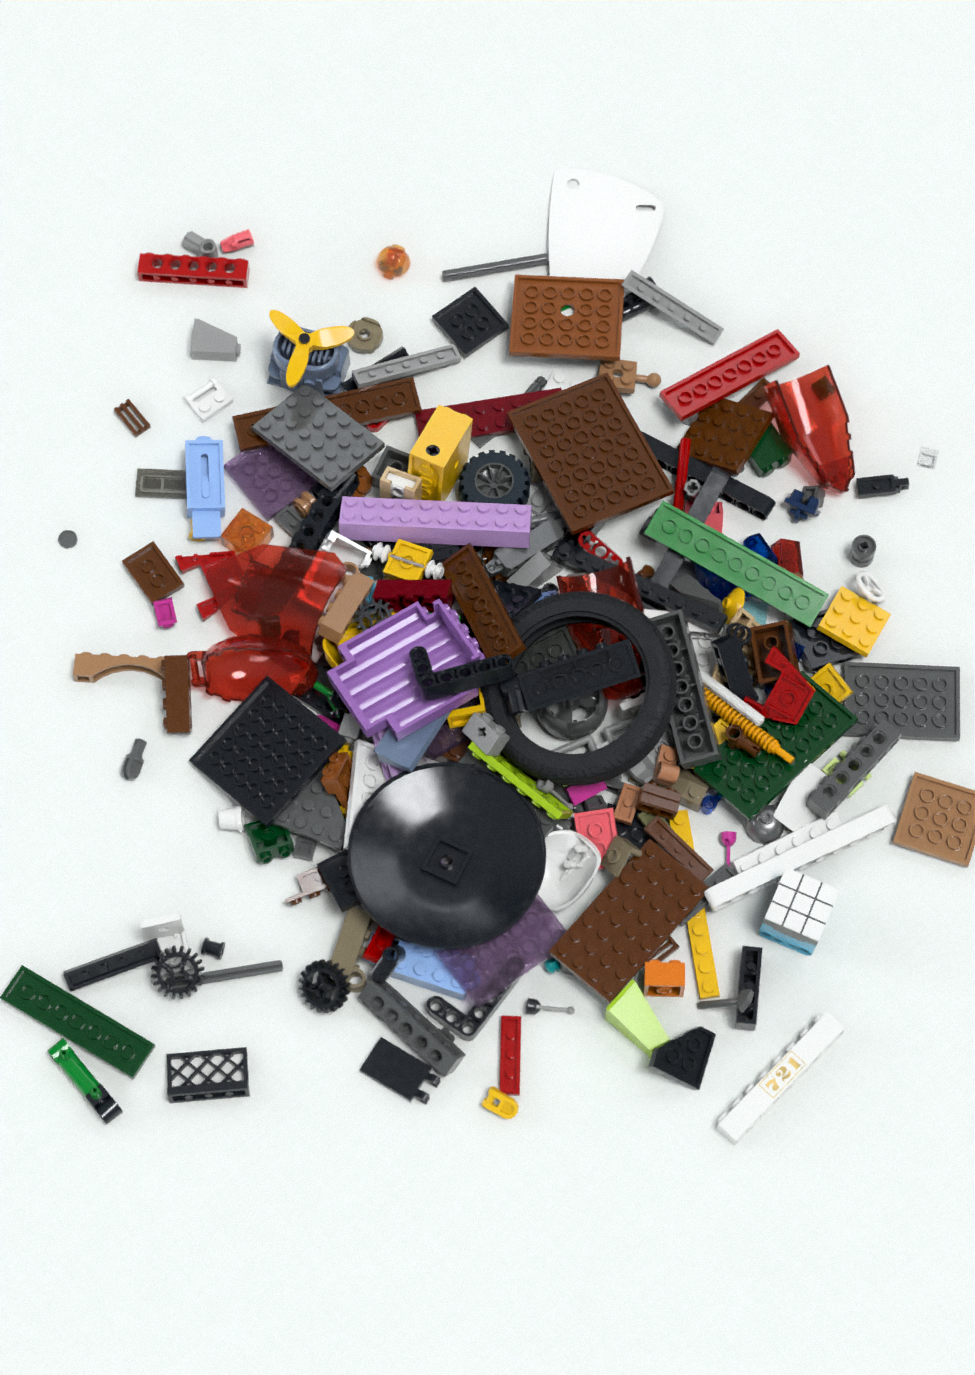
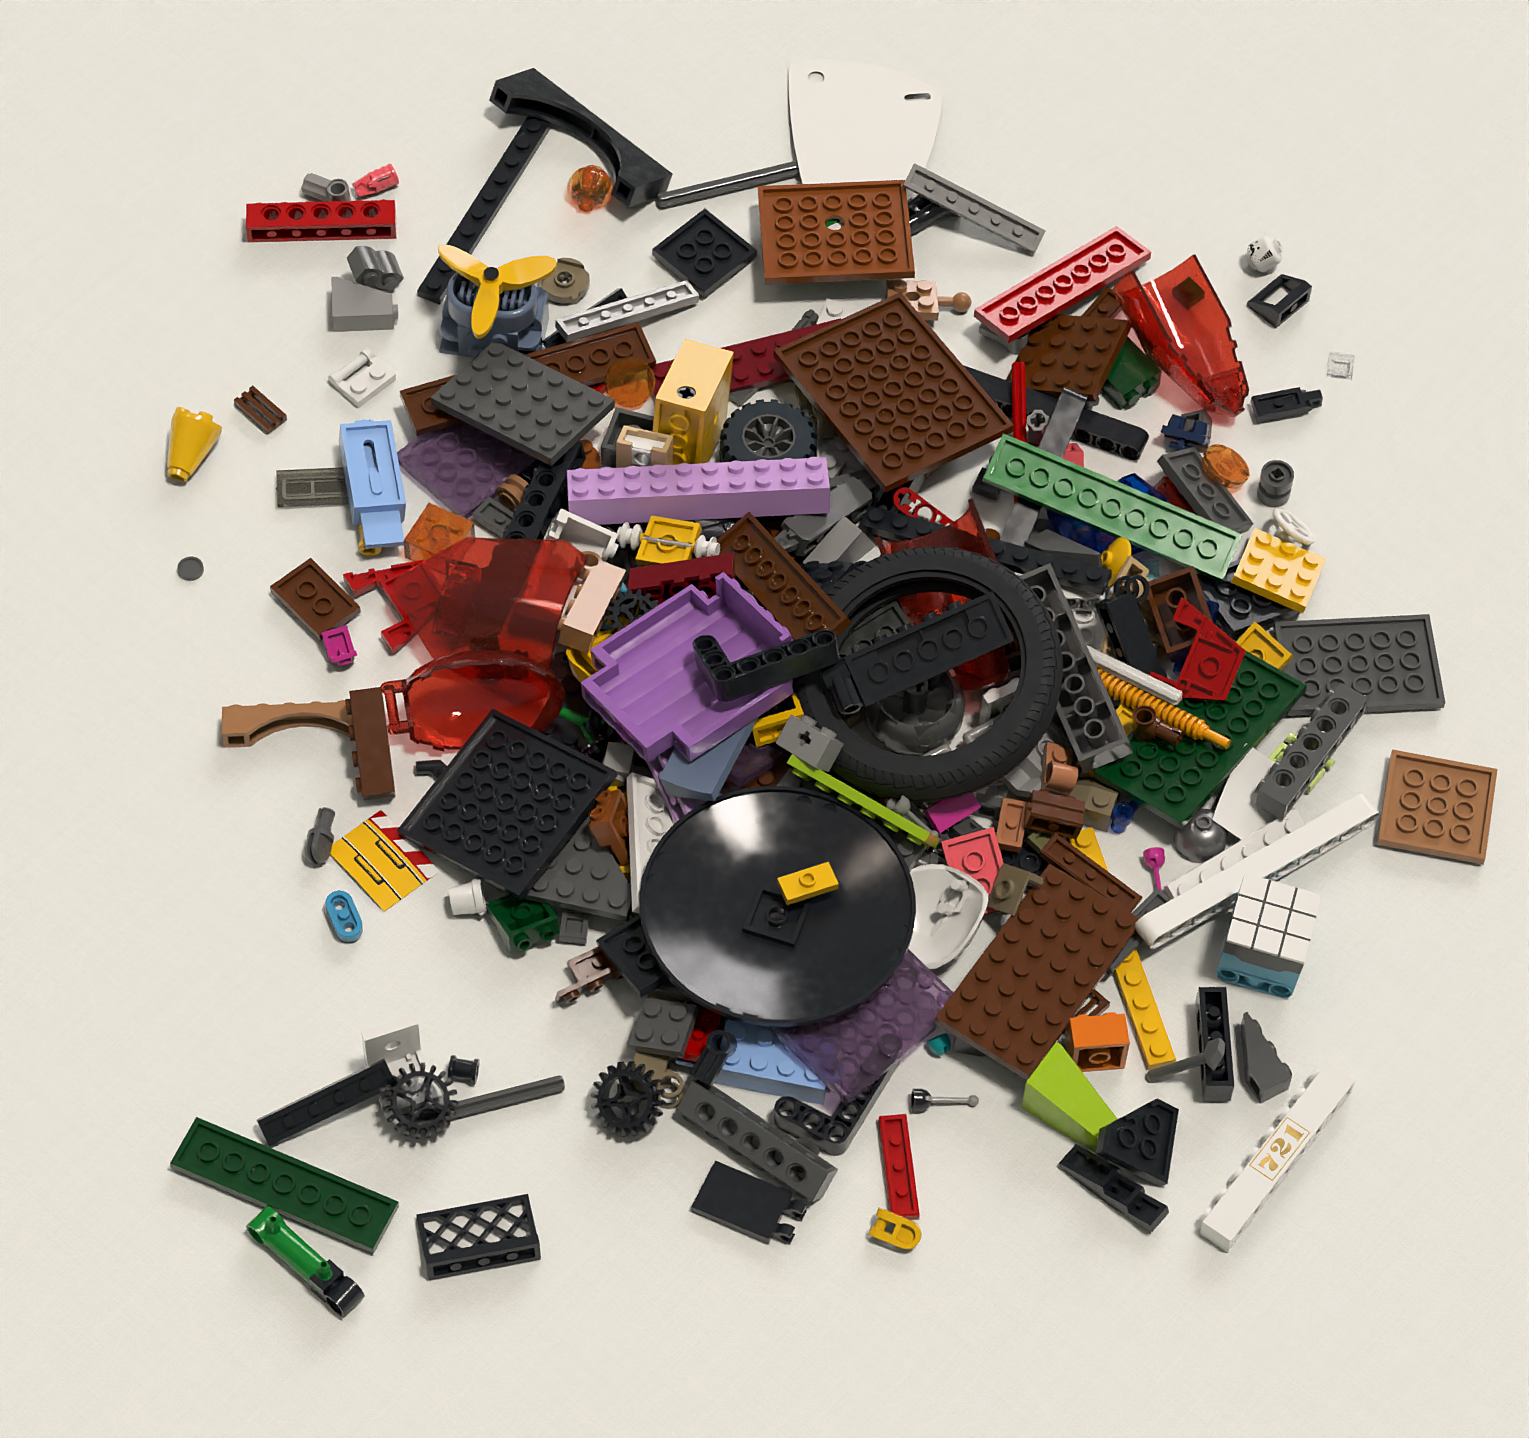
camera: 10 degrees left, 10 degrees down
(77, 441) = (189, 442): none -> yellow cone
(143, 823) = (344, 918): none -> dark azure plate
(176, 781) = (383, 860): none -> yellow sticker
(222, 713) = (432, 767): none -> black arm
(227, 314) = (375, 267): none -> dark grey brick
(317, 266) = (487, 204): none -> black plate
(355, 936) = (664, 1027): none -> dark grey plate
(362, 183) = (534, 95): none -> black arch
(400, 423) = (629, 382): none -> clear orange tile
(470, 840) = (807, 883): none -> yellow plate
(660, 1088) = (1113, 1188): none -> black slope
(781, 1010) = (1262, 1066): none -> dark grey slope
(809, 553) = (1203, 494): none -> dark grey plate
(828, 533) = (1225, 465): none -> clear orange tile
(884, 362) = (1264, 253): none -> white head
(887, 412) = (1277, 314): none -> black tile

